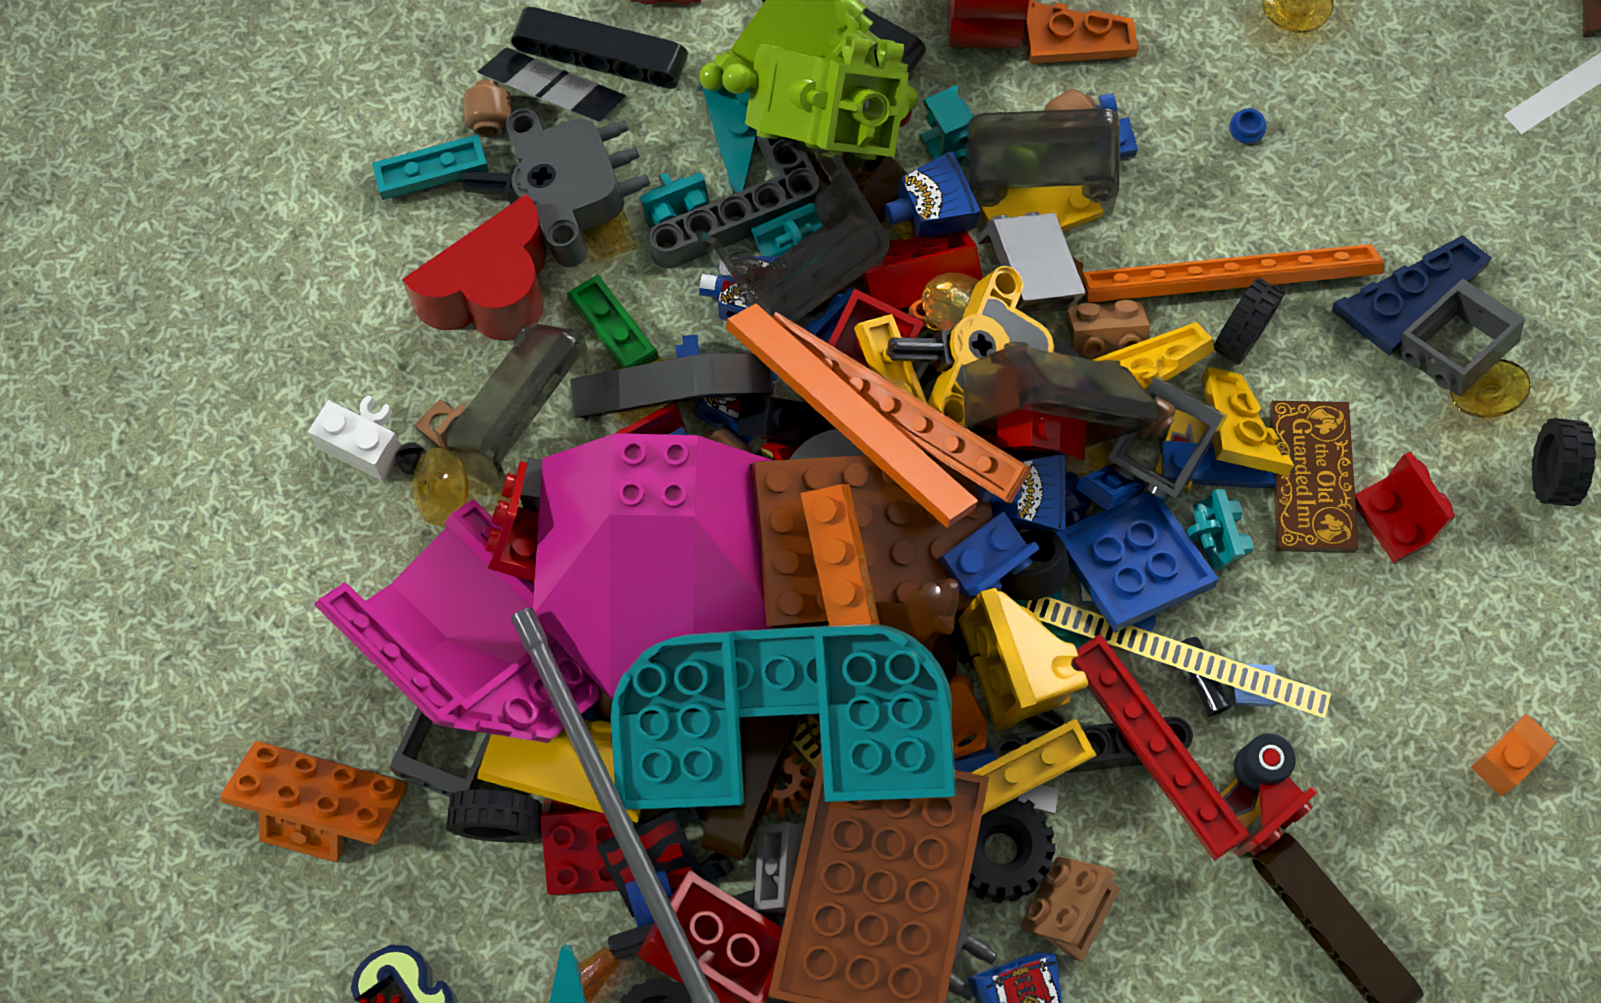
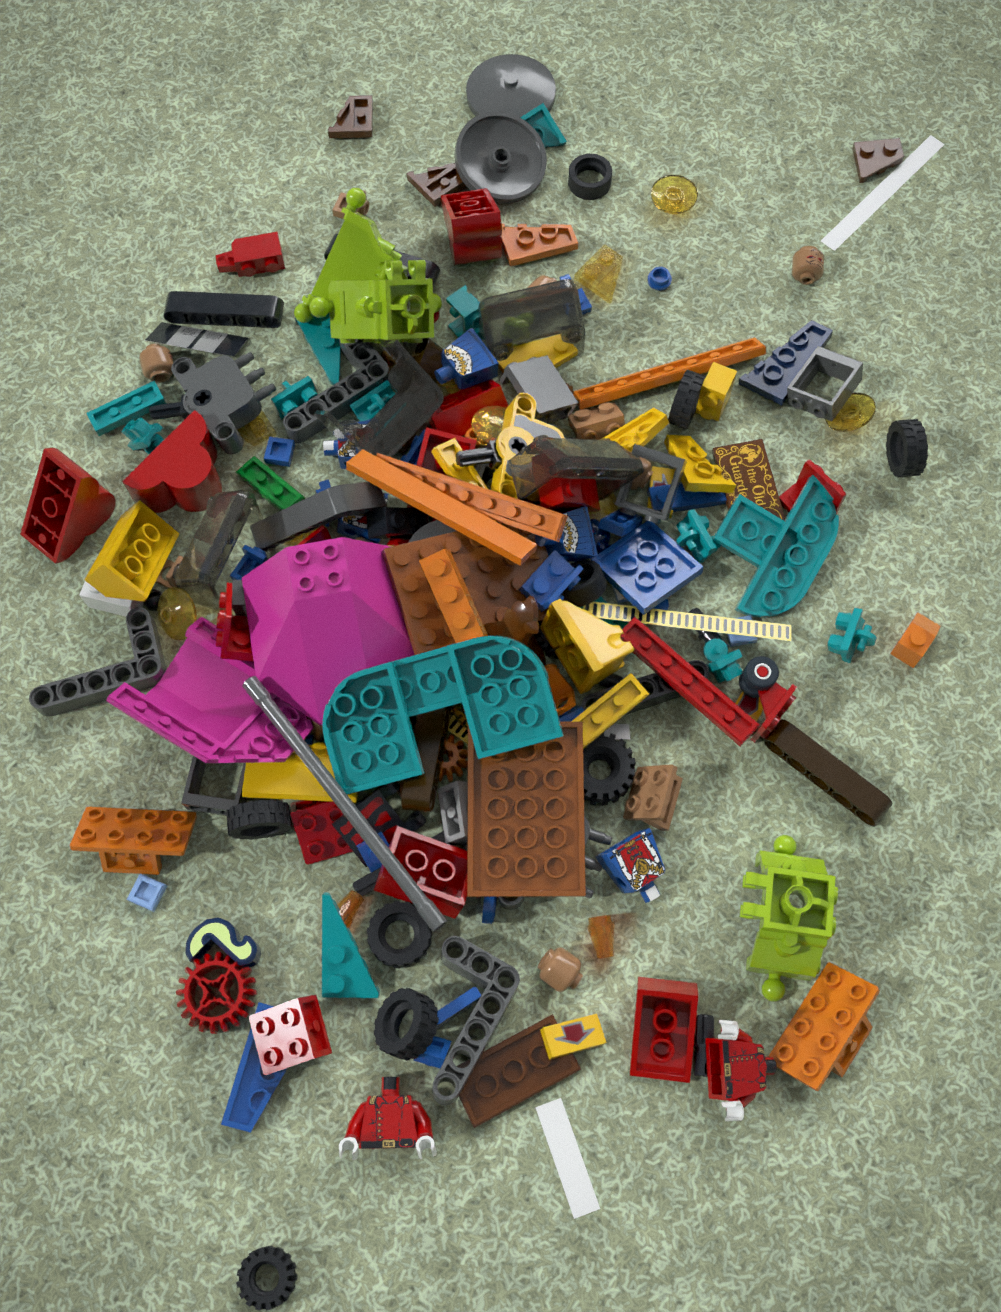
camera: 10 degrees left, 0 degrees up
(312, 297) = (64, 506): none -> red brick
(314, 885) = (147, 892): none -> light blue tile
(329, 557) = (110, 675): none -> dark grey beam
(395, 389) = (133, 555): none -> yellow slope
(446, 214) = (143, 435): none -> teal hips
(561, 434) = (252, 559): none -> blue bracket
(635, 275) = (279, 451): none -> blue plate
(1163, 100) = (601, 273): none -> clear yellow wing
(1216, 728) = (723, 663): none -> teal hips
(1294, 317) = (715, 391): none -> yellow brick
(1343, 579) = (783, 551): none -> teal plate
(1424, 713) = (853, 625): none -> teal hips
(1475, 150) = (808, 265): none -> medium nougat head

